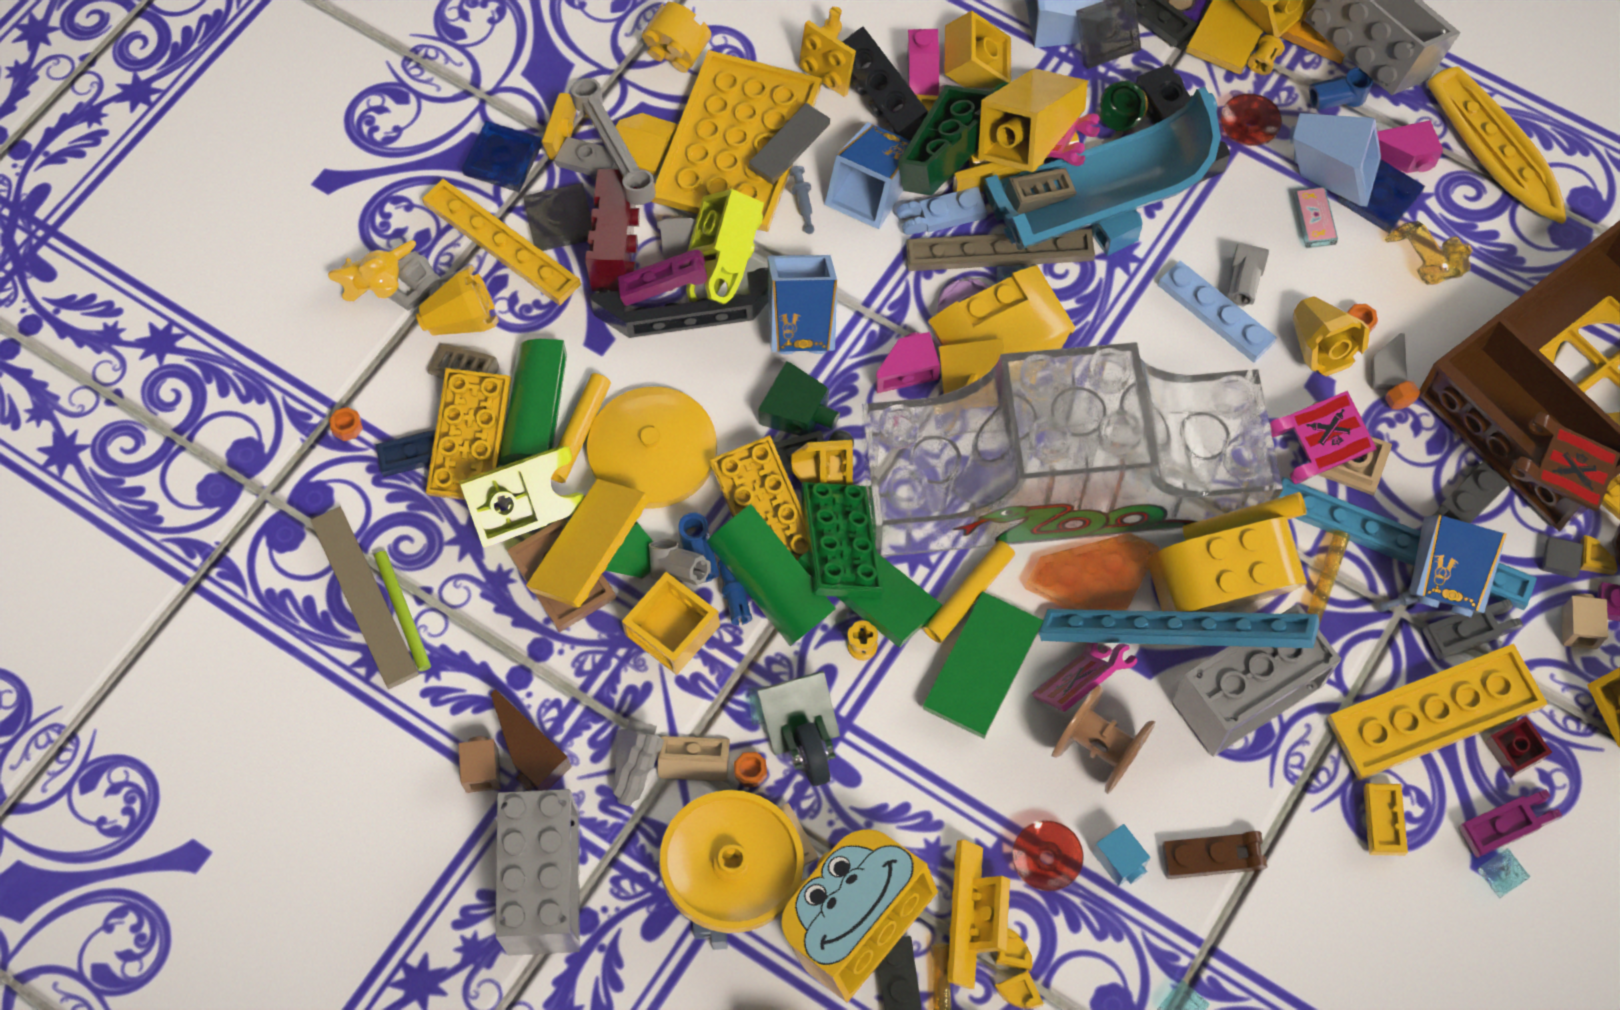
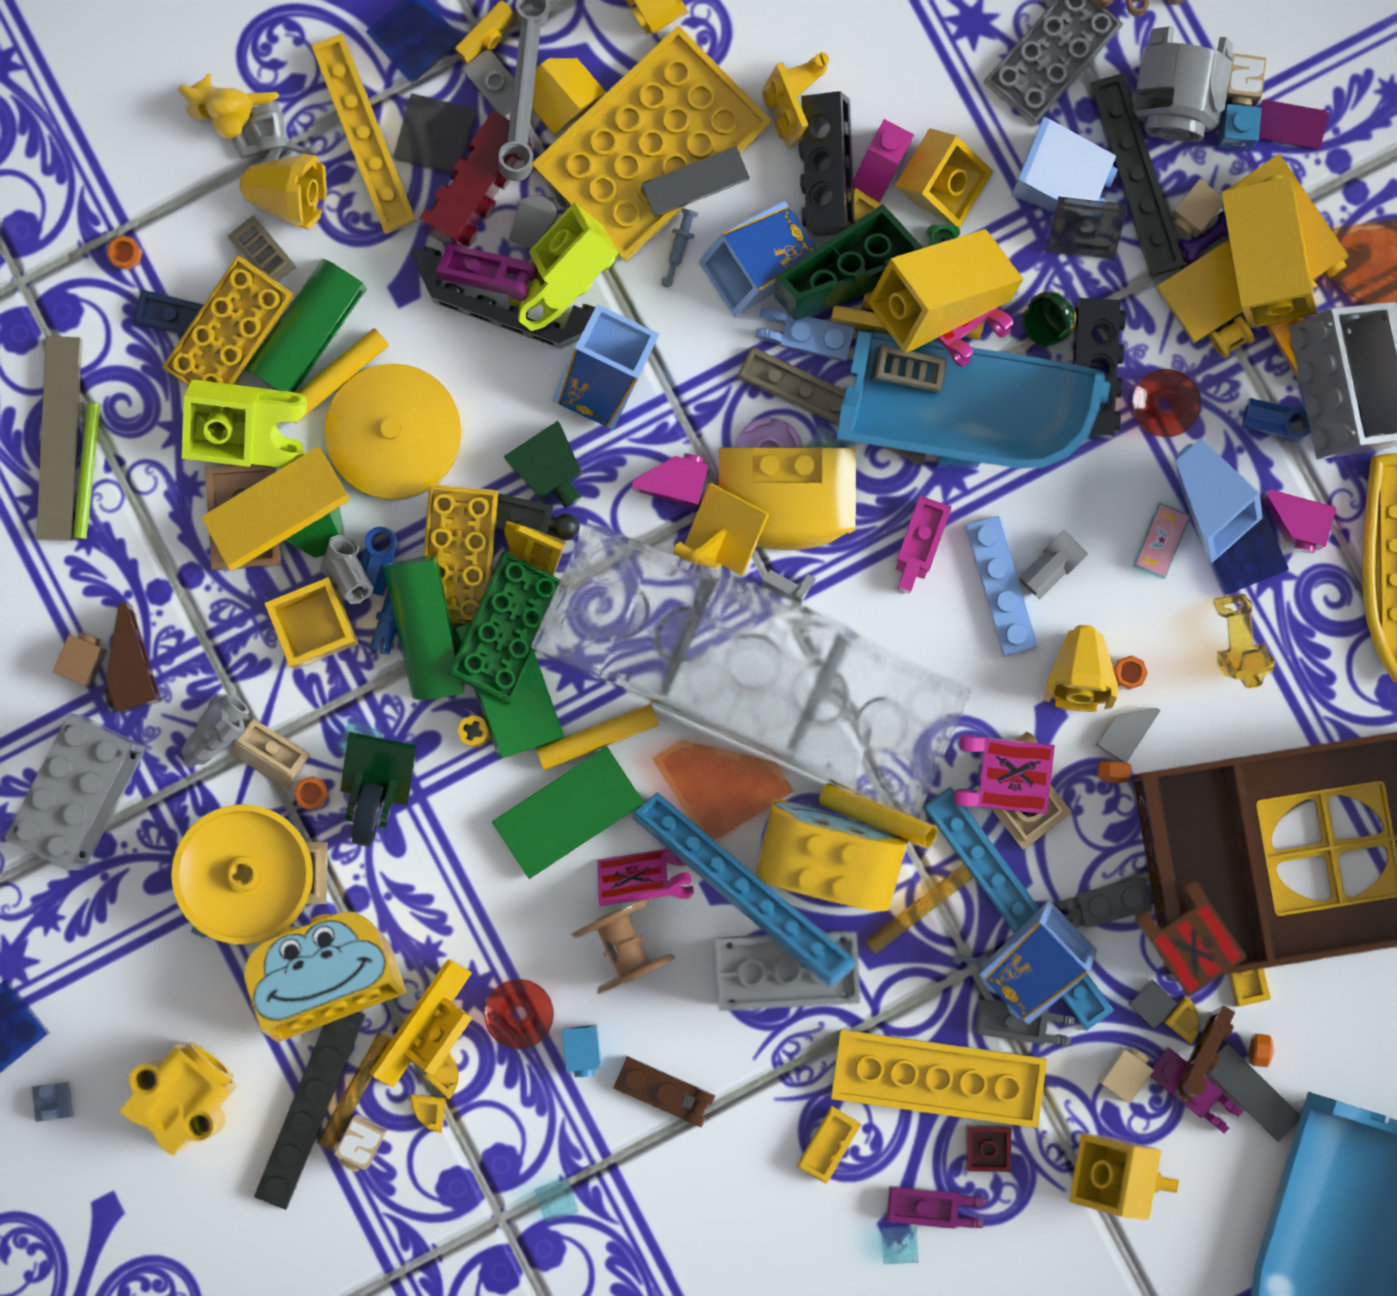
camera: 30 degrees right, 20 degrees up
(1133, 308) = (921, 541): none -> dark pink hinge

